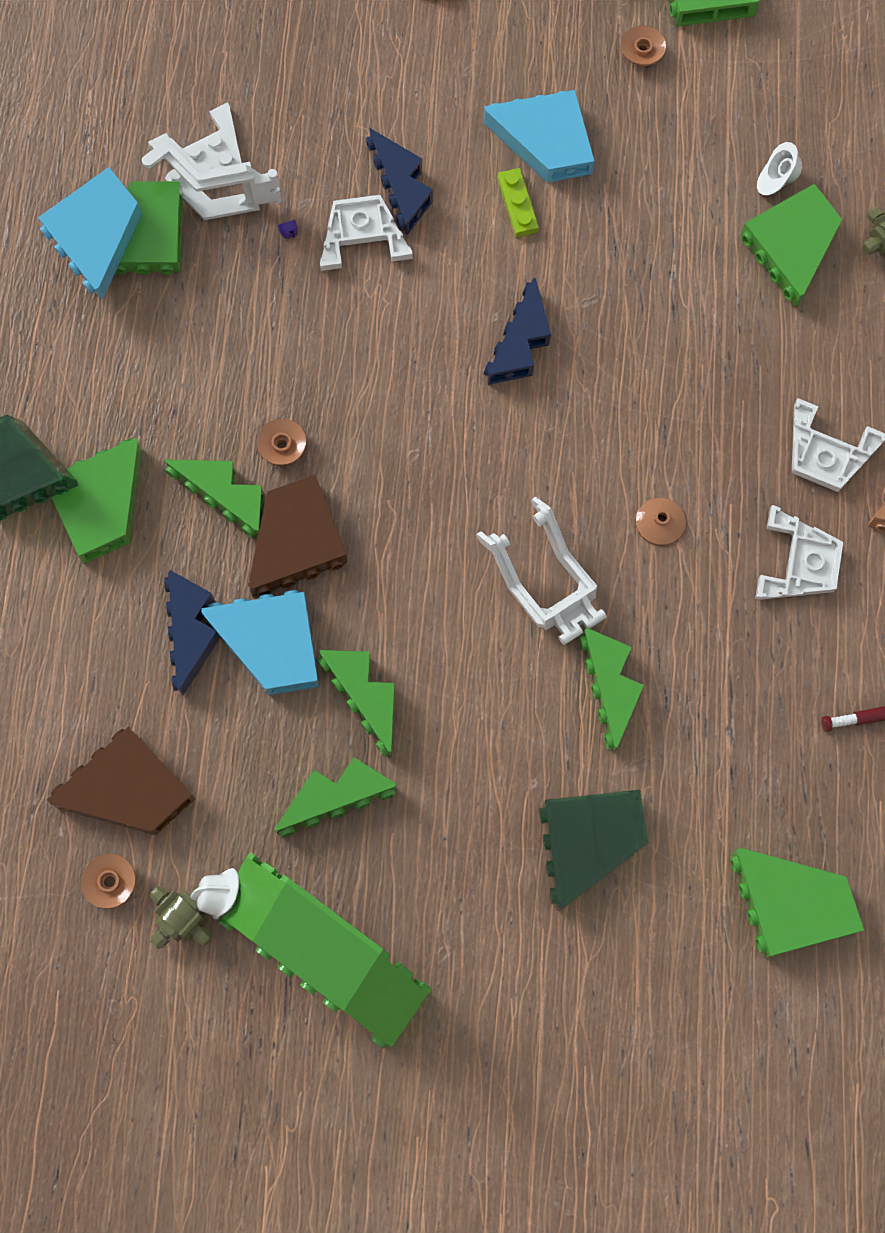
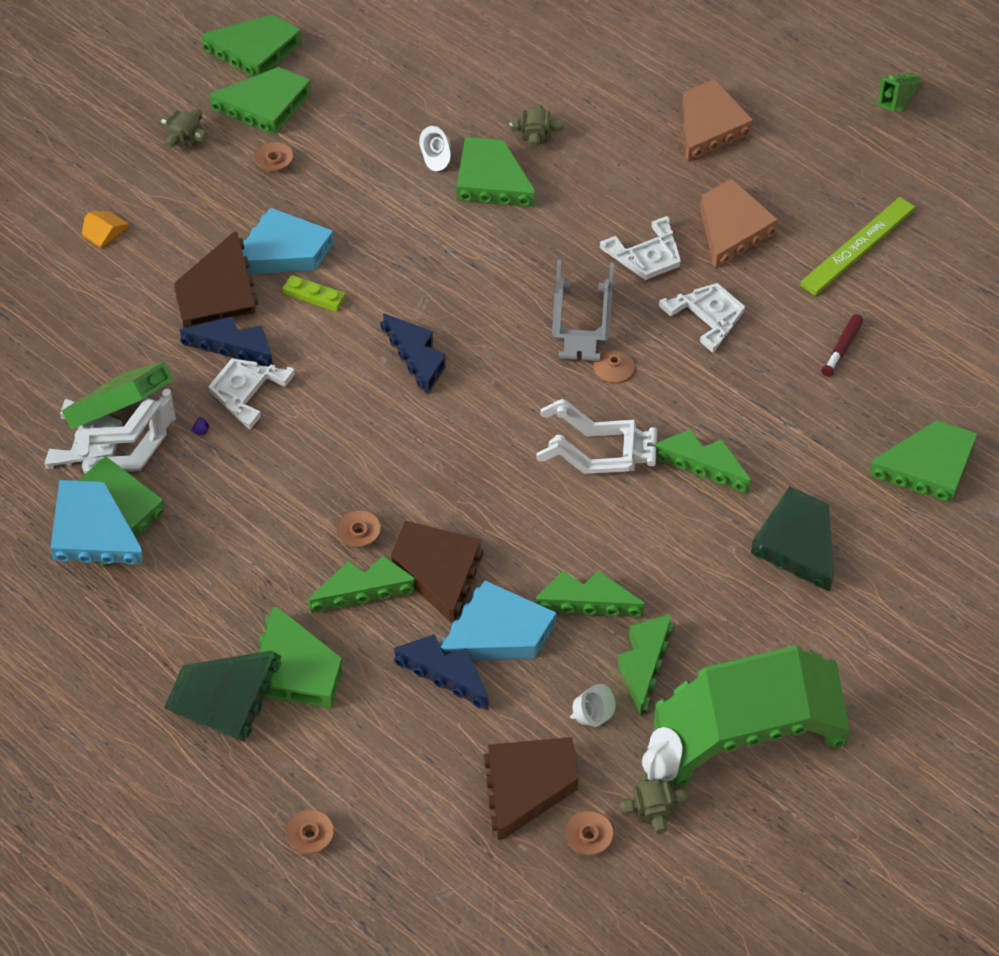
camera: 50 degrees left, 20 degrees down
(246, 788) = (594, 706): none -> white piece
(247, 137) = (118, 393): none -> bright green slope
(446, 117) = (217, 285): none -> reddish brown slope
(657, 469) = (581, 340): none -> light grey piece

